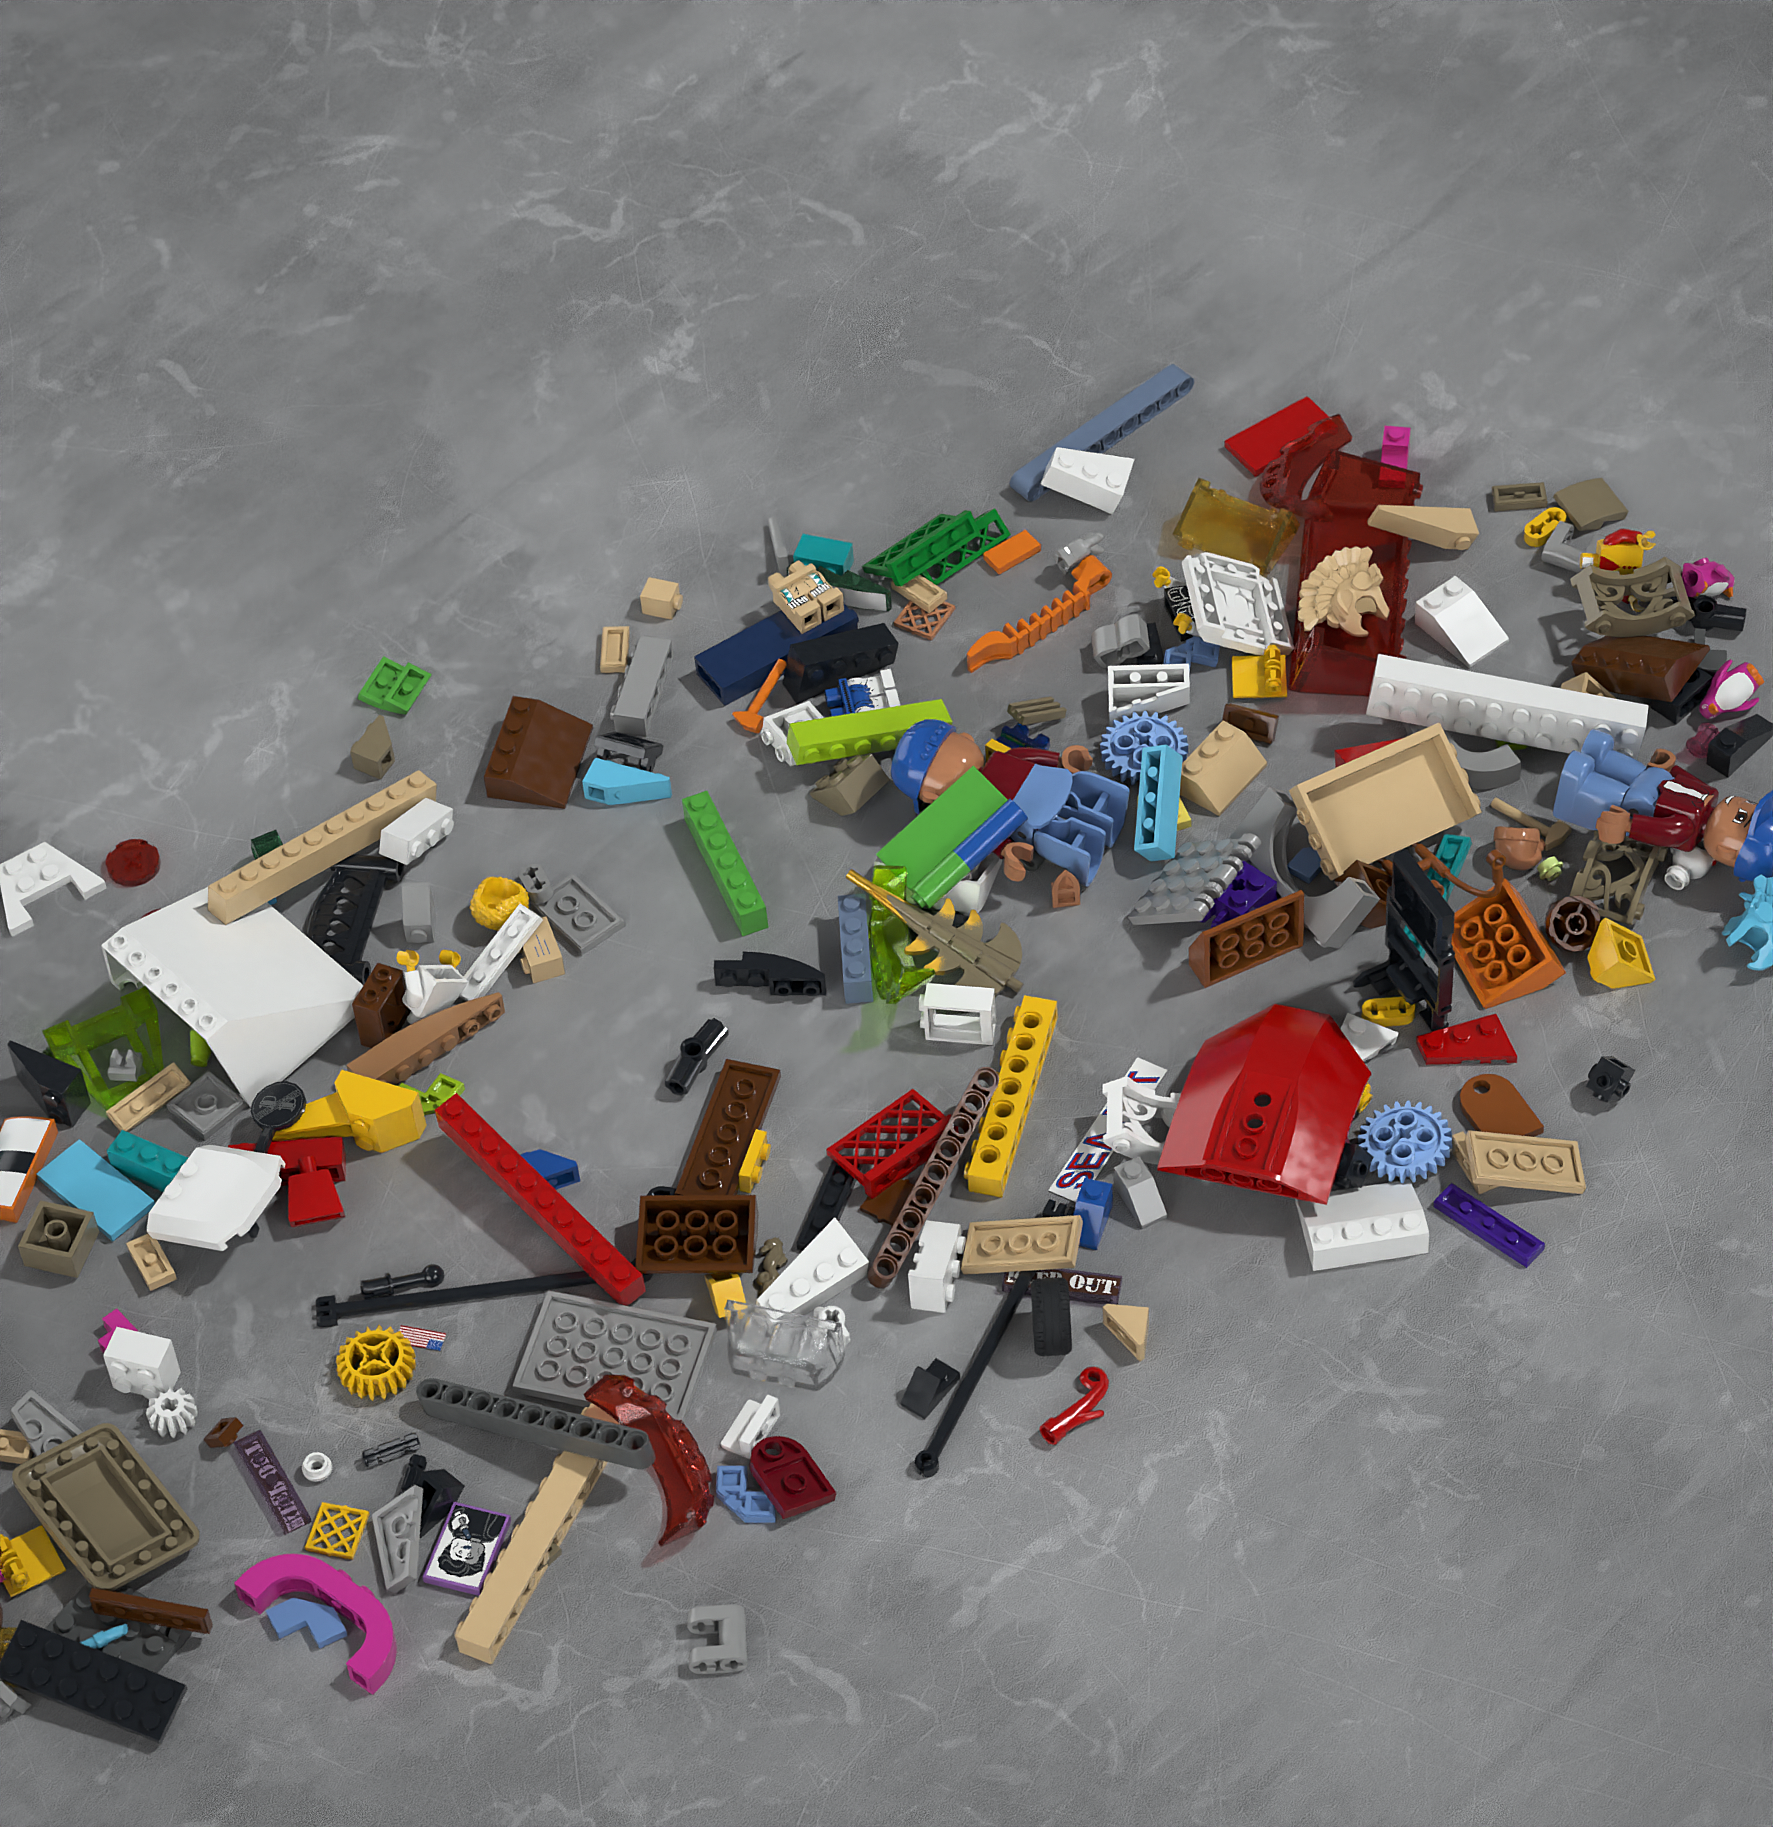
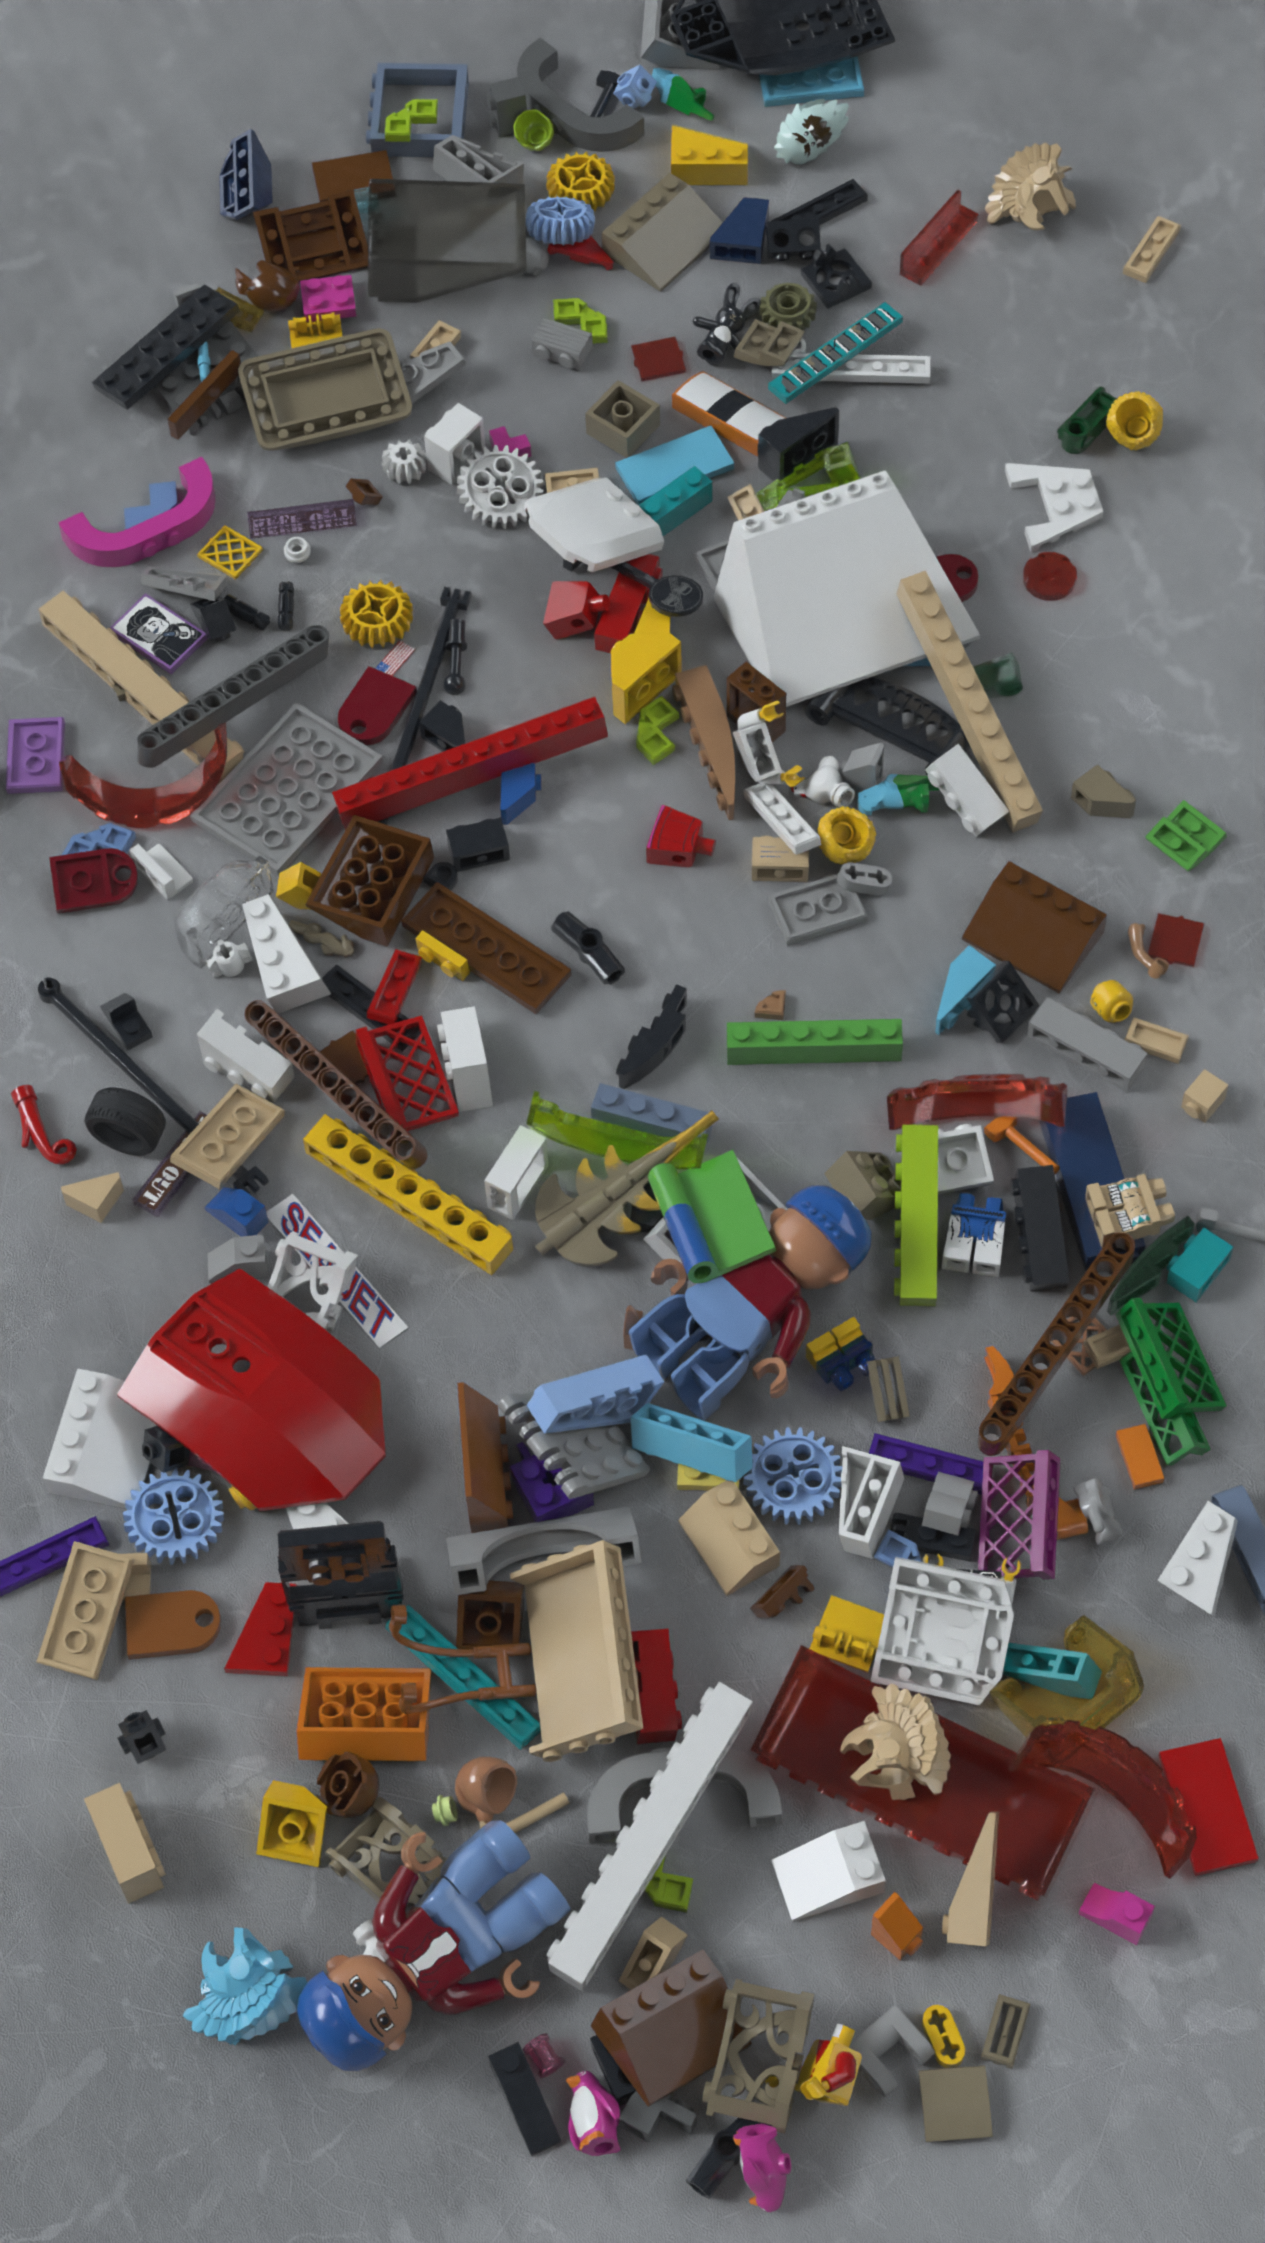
camera: 110 degrees right, 10 degrees up
(180, 1313) = (481, 497): none -> white gear
(442, 937) = (826, 785): none -> white animal
(444, 899) = (897, 793): none -> animal
(486, 1329) = (375, 704): none -> dark red tile
(496, 1250) = (443, 727): none -> black slope
(505, 666) = (1176, 939): none -> clear red piece
(517, 687) = (1155, 967): none -> medium nougat piece
(548, 1033) = (677, 839): none -> red torso
(592, 681) = (1111, 1001): none -> yellow head
(617, 1179) = (478, 844): none -> black brick
(658, 1594) = (35, 754): none -> medium lavender tile
(694, 912) = (772, 1006): none -> medium nougat tile
(719, 719) = (978, 1096): none -> clear red windscreen
(803, 1186) = (394, 987): none -> red tile
(852, 1099) = (466, 1058): none -> white wedge
(952, 604) = (1052, 1355): none -> reddish brown beam
(1085, 675) = (926, 1461): none -> dark purple tile
(1107, 571) = (1043, 1512): none -> magenta fence
(1153, 868) = (596, 1396): none -> light blue wedge
(1226, 531) = (1053, 1669): none -> teal slope
(1483, 570) = (897, 1927): none -> orange slope
(1705, 1048) = (126, 1842): none -> tan brick

